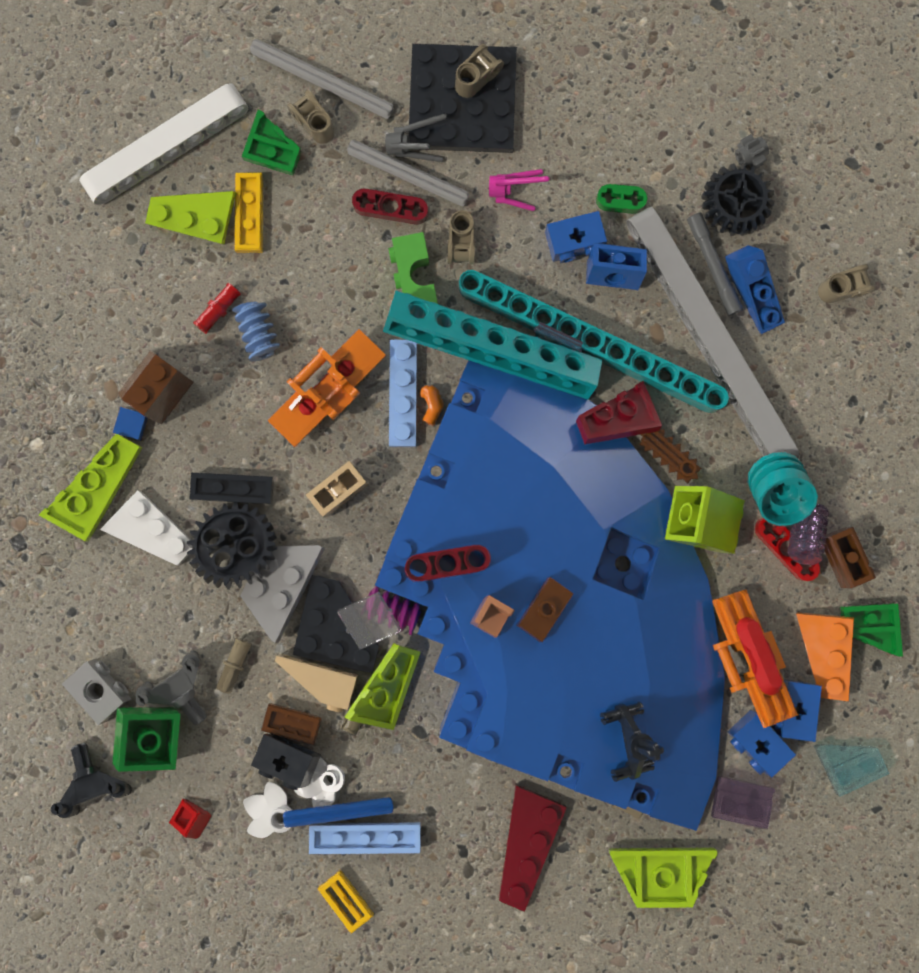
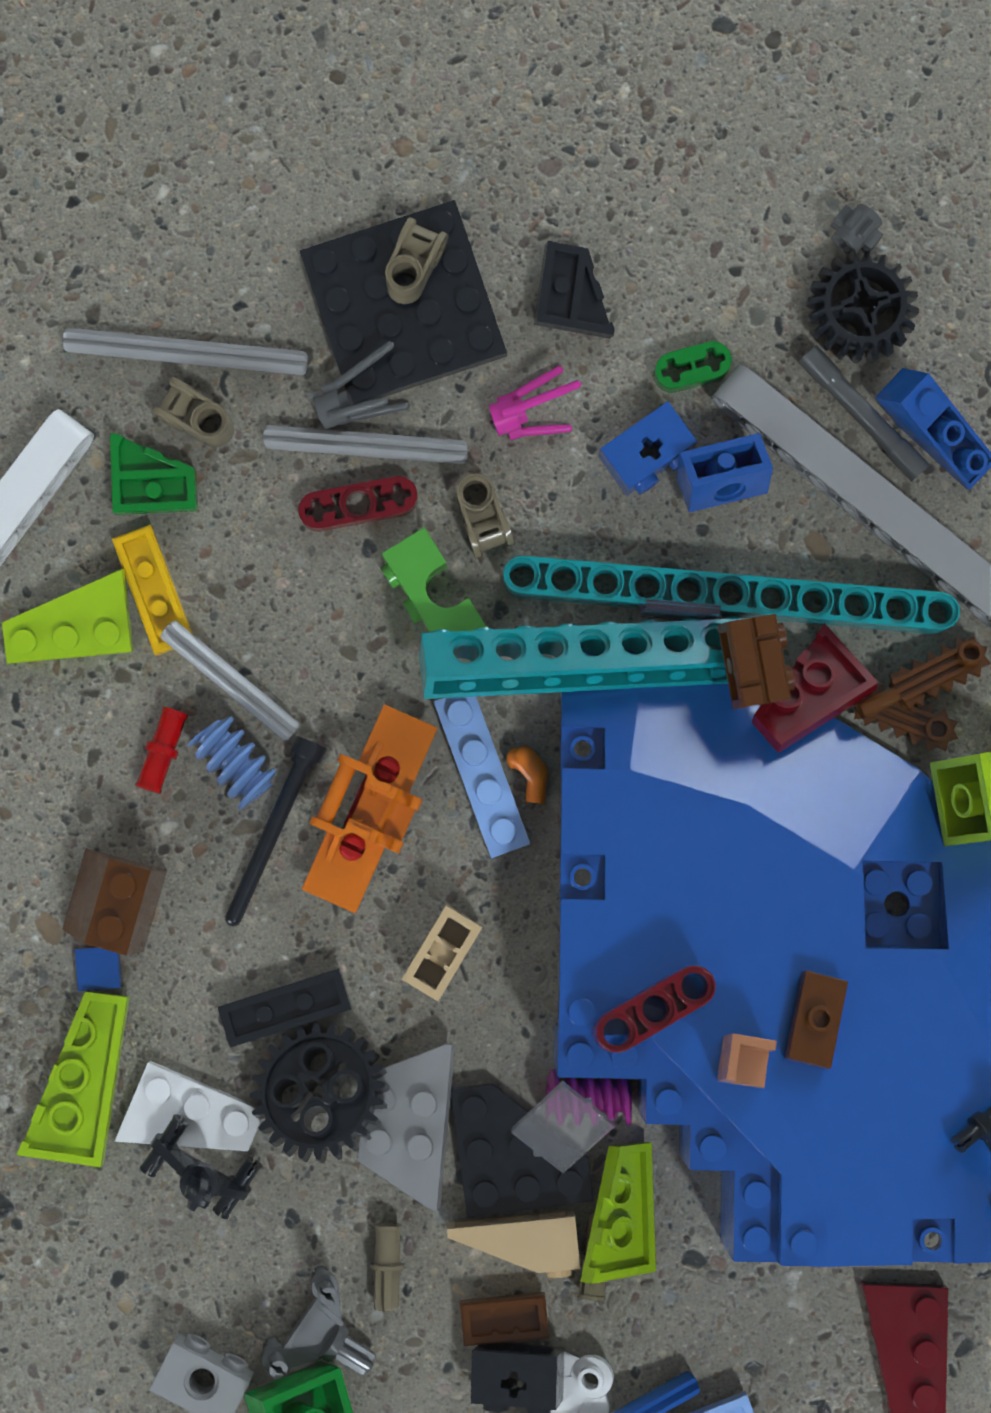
camera: 20 degrees left, 0 degrees up
(139, 569) = (198, 1179): none -> black axle
(273, 281) = (229, 680): none -> light grey axle
(300, 345) = (305, 757): none -> black piece
(564, 128) = (570, 294): none -> black wing
(591, 382) = (756, 661): none -> reddish brown brick
(691, 435) = (926, 678): none -> reddish brown piece

